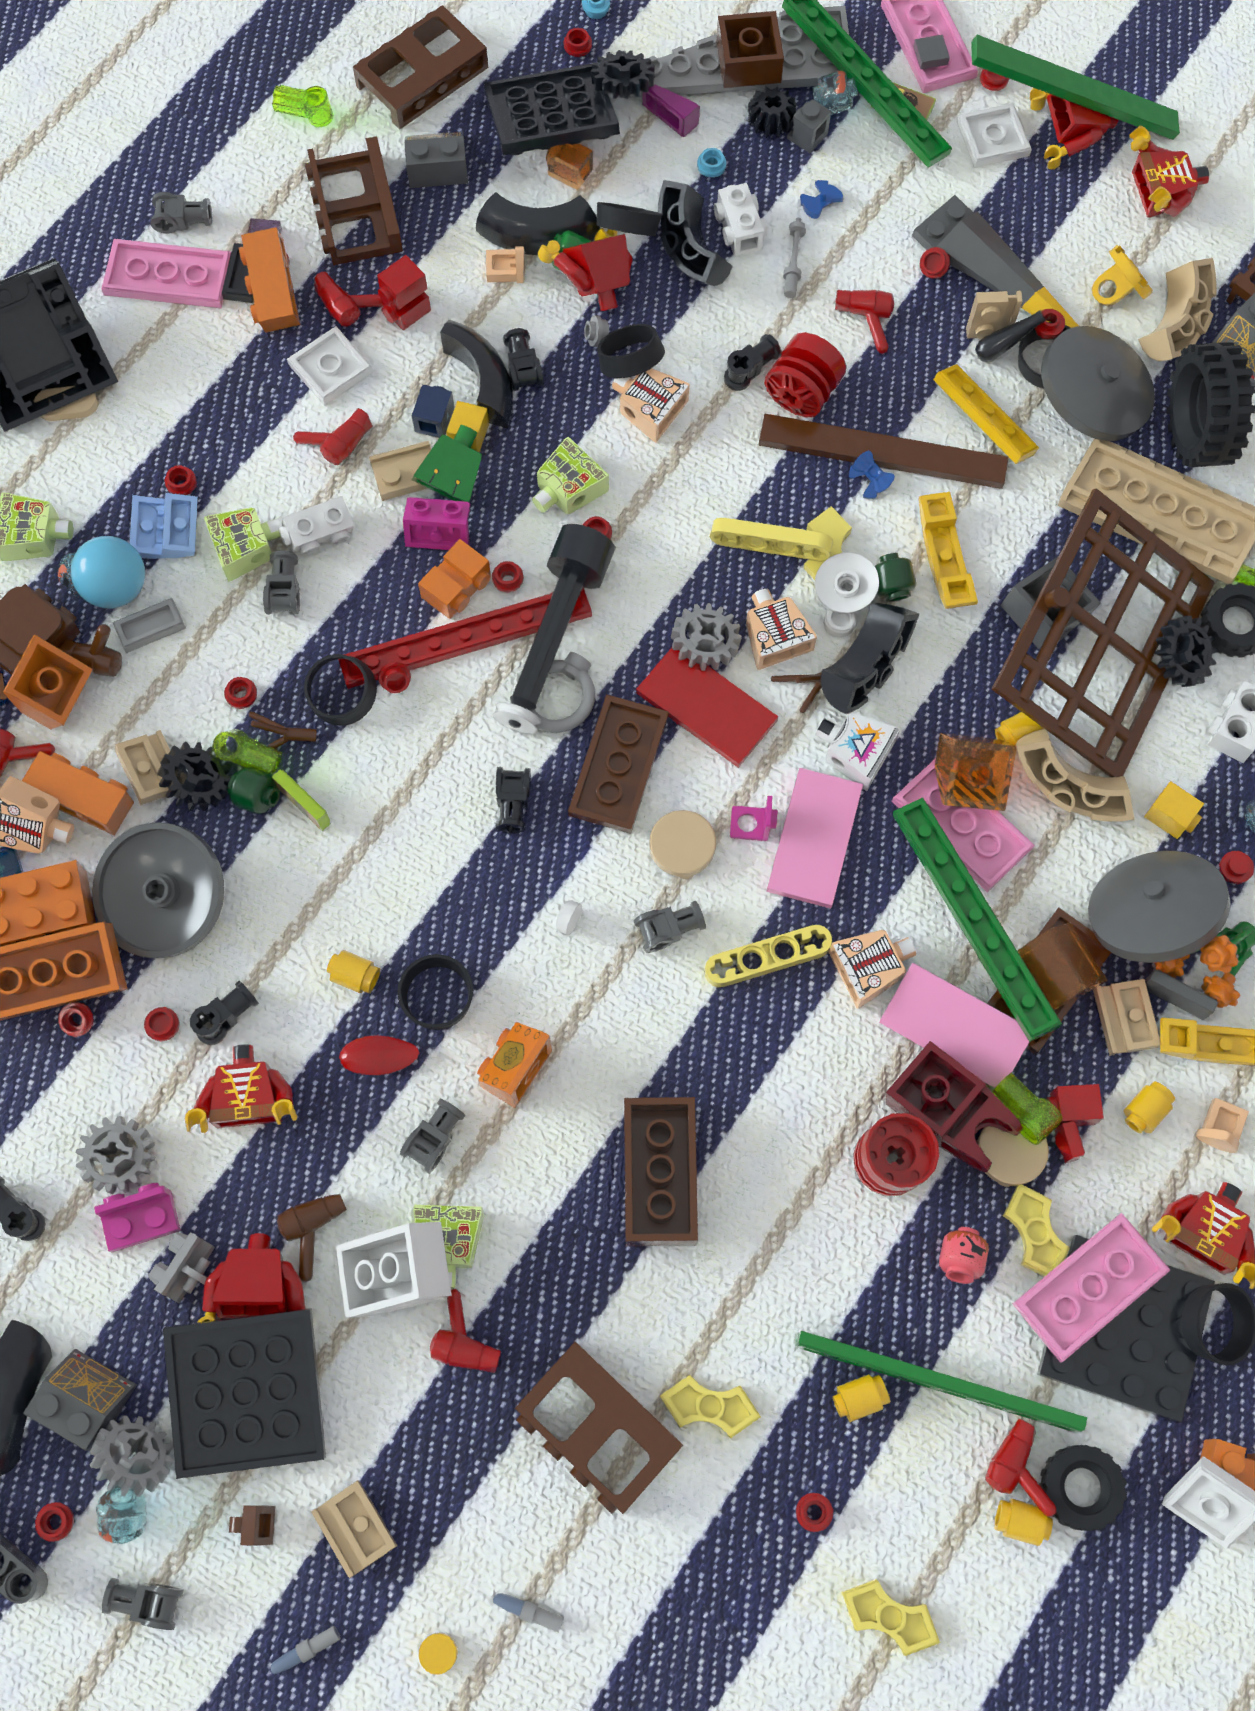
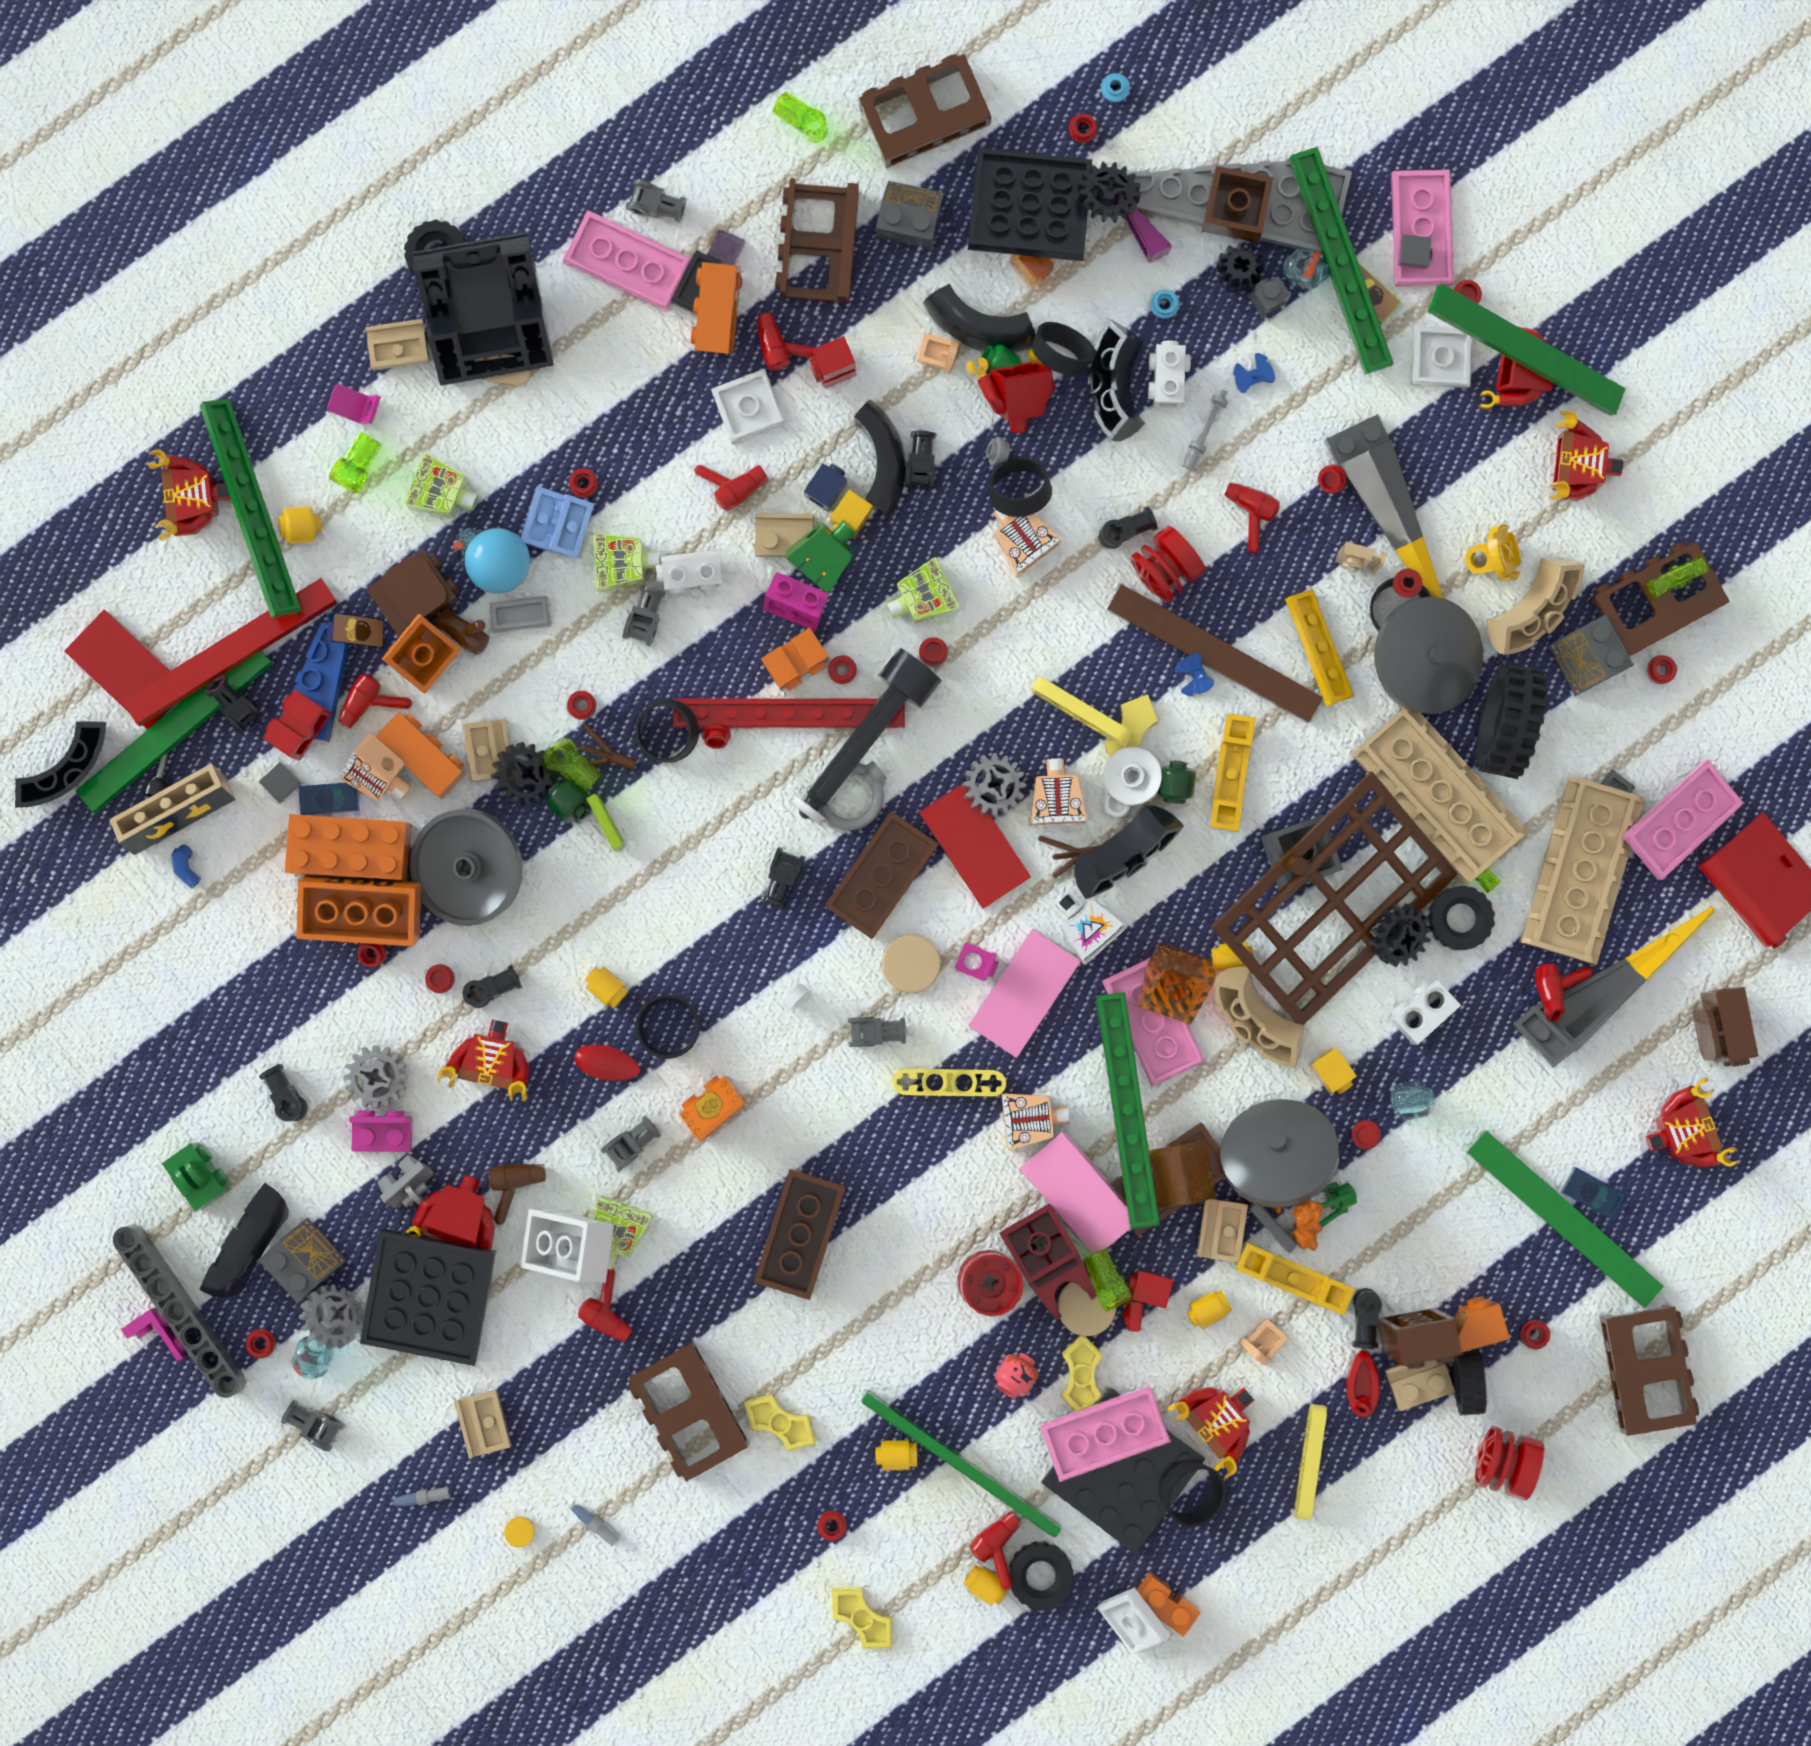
camera: 20 degrees right, 15 degrees up
(255, 1525) = (409, 1396): reddish brown tile -> none
(1004, 339) = (1361, 582): black piece -> none

